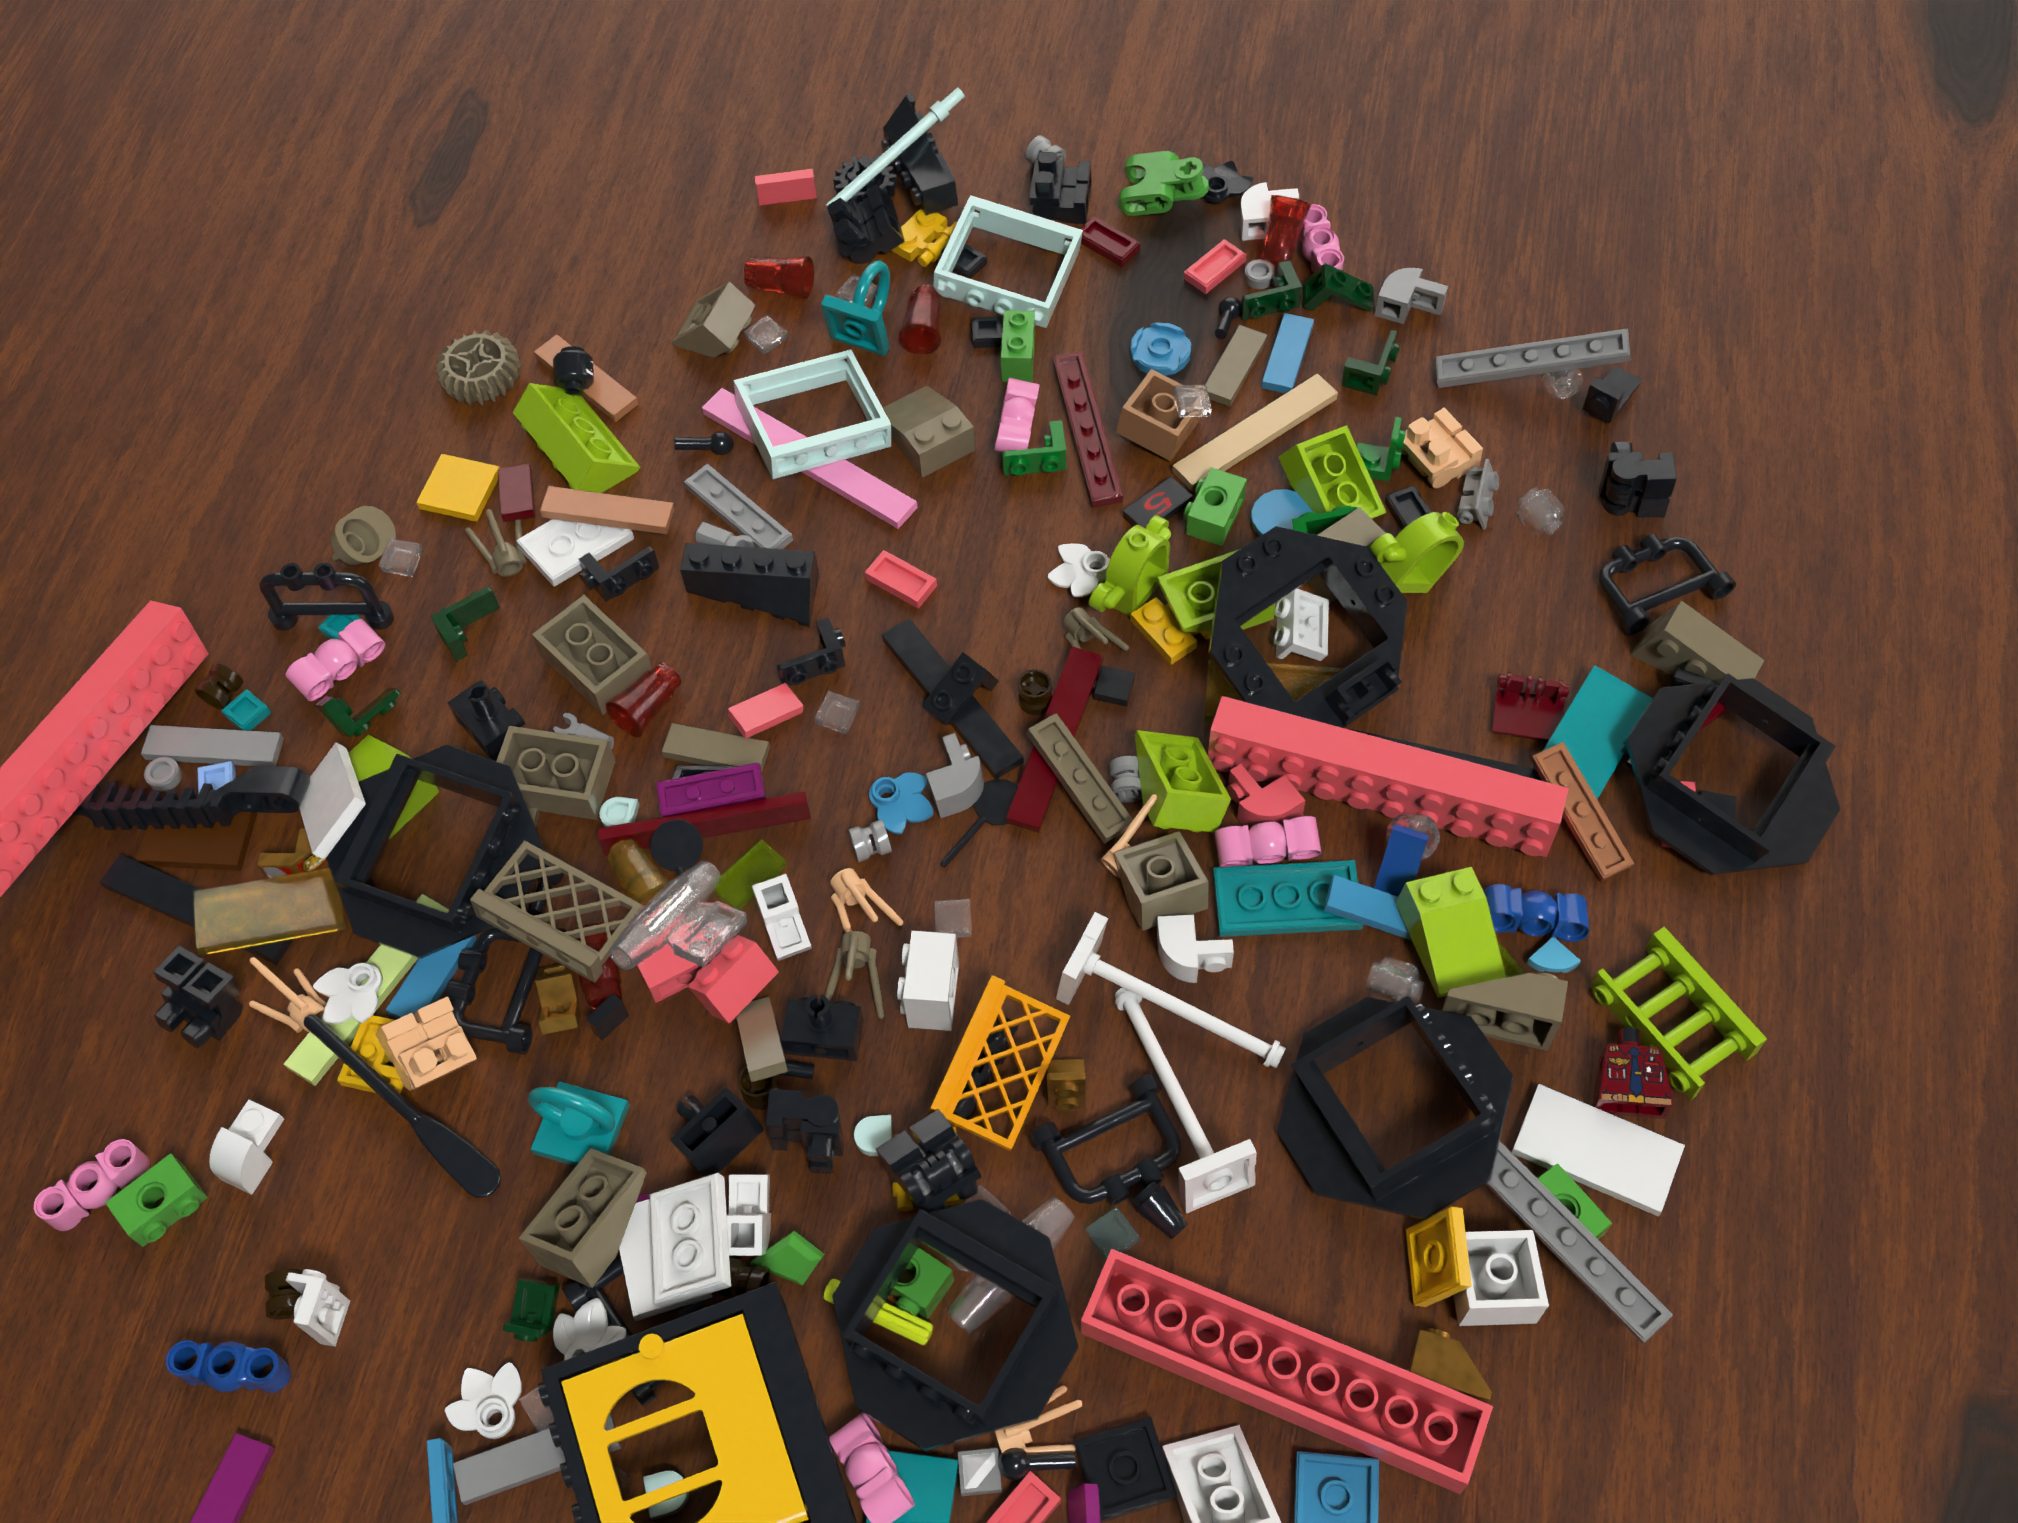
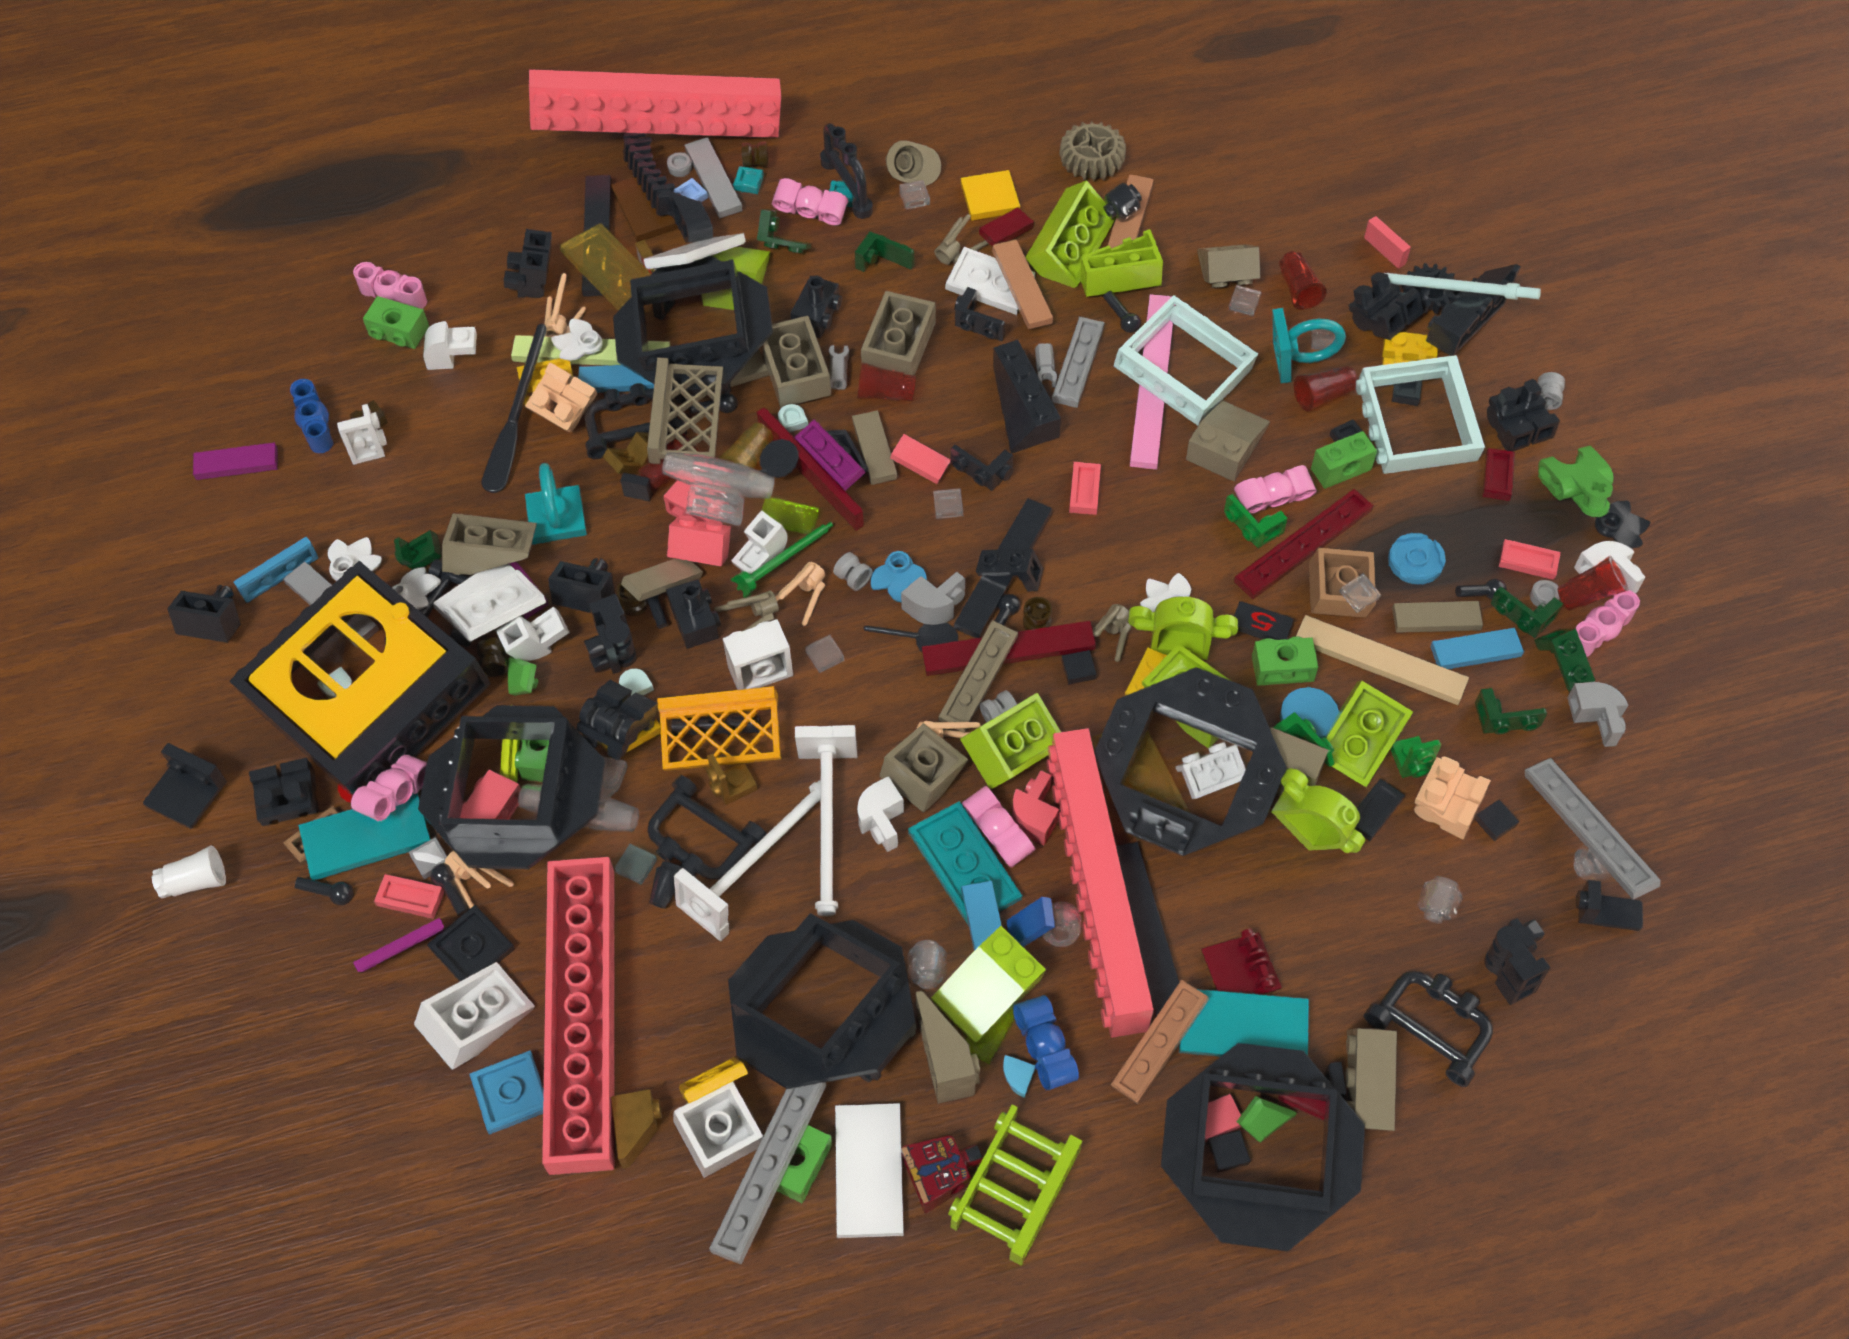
camera: 60 degrees right, 0 degrees up
(655, 409) = (1123, 267): none -> lime wedge
(818, 952) = (747, 581): none -> green piece
(951, 1361) = (492, 798): none -> coral brick
(1002, 715) = (1008, 606): none -> black bar
(1479, 427) = (1496, 820): none -> black tile
(1480, 505) = (1435, 848): light grey hinge -> none
(1698, 764) = (1264, 1118): none -> bright green piece

